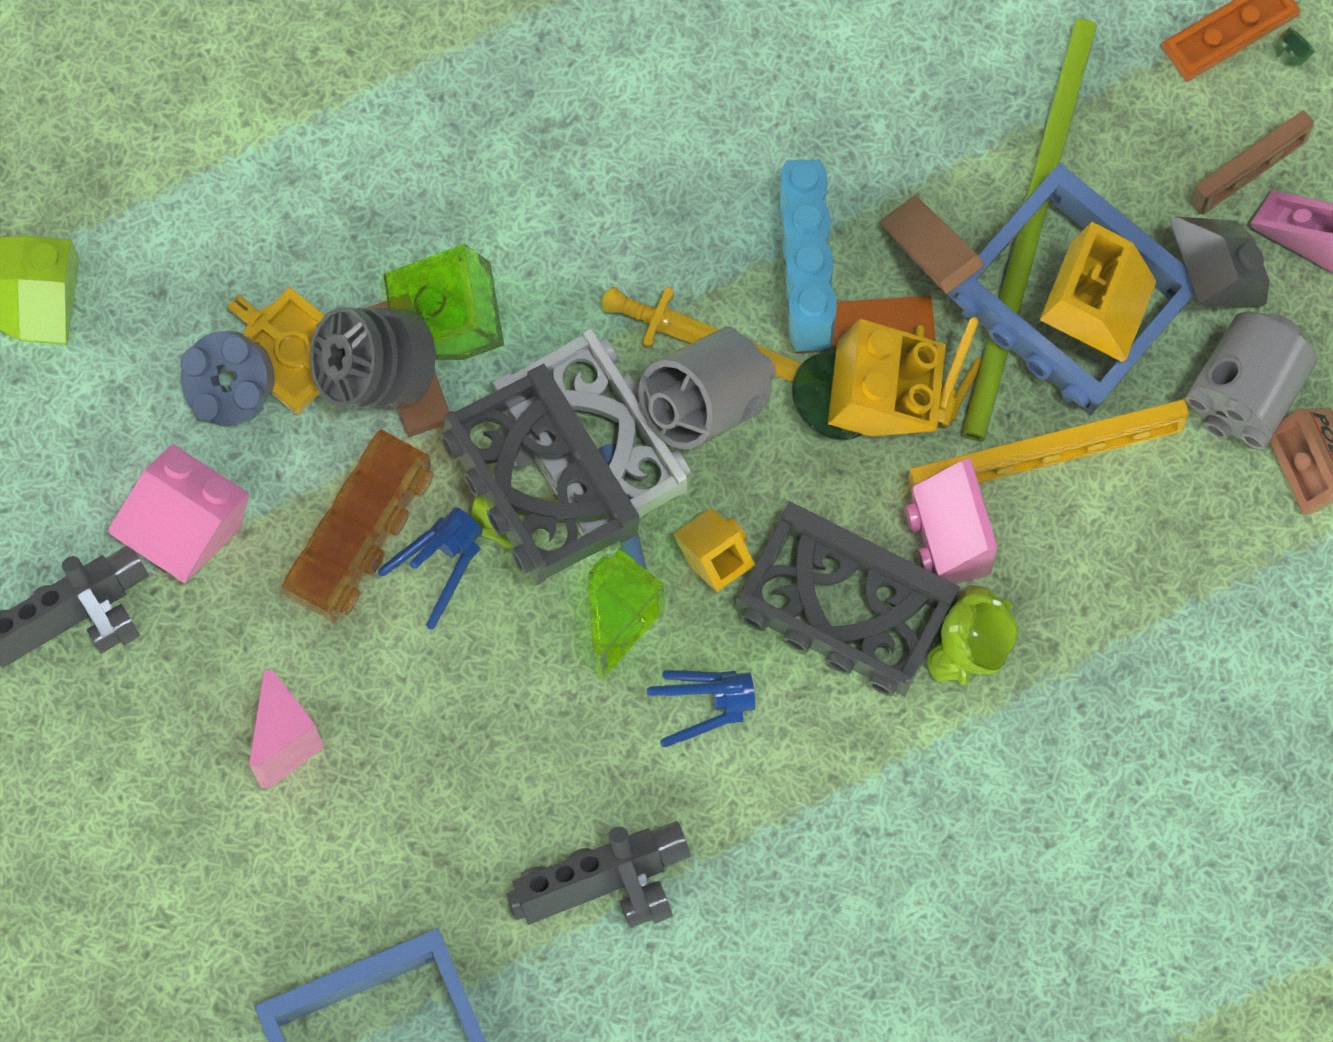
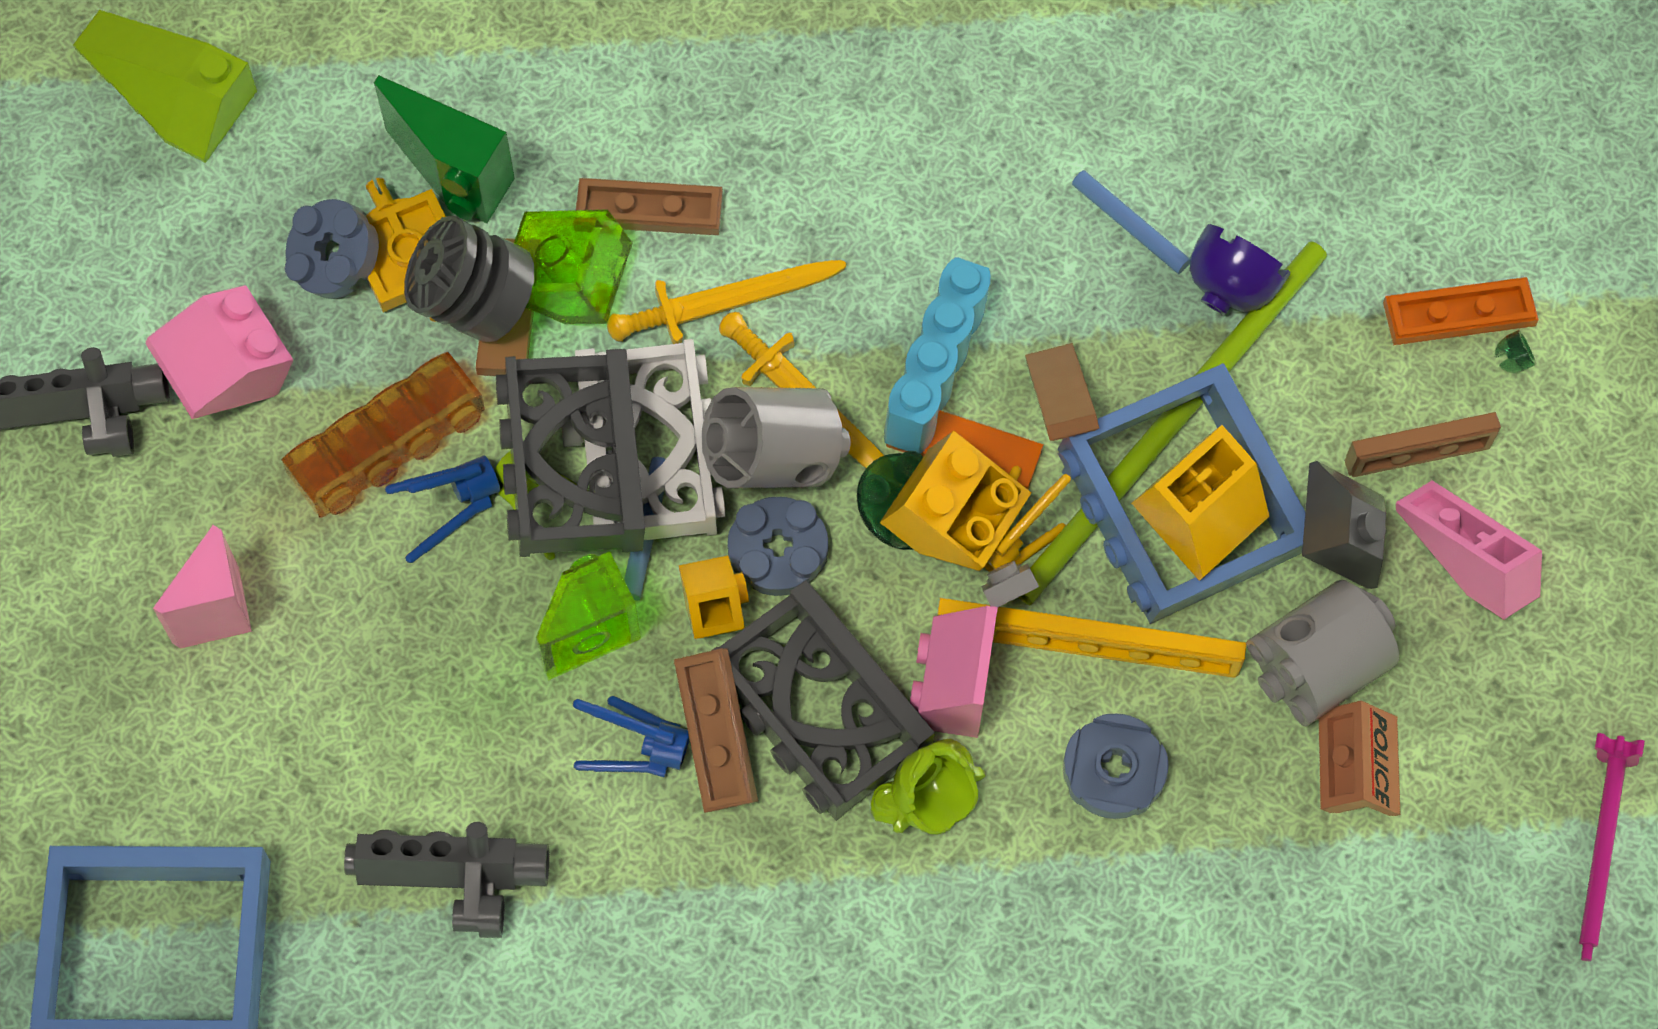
camera: 20 degrees right, 5 degrees down
(292, 246) = (454, 152): none -> green slope
(489, 220) = (654, 205): none -> medium nougat tile
(588, 282) = (719, 299): none -> yellow sword
(753, 454) = (772, 517): none -> sand blue plate
(773, 663) = (715, 730): none -> medium nougat tile
(914, 63) = (1131, 222): none -> medium blue bar
(967, 433) = (1008, 583): none -> light grey plate
(1027, 75) = (1234, 272): none -> dark purple cylinder
(1132, 528) = (1139, 750): none -> sand blue plate

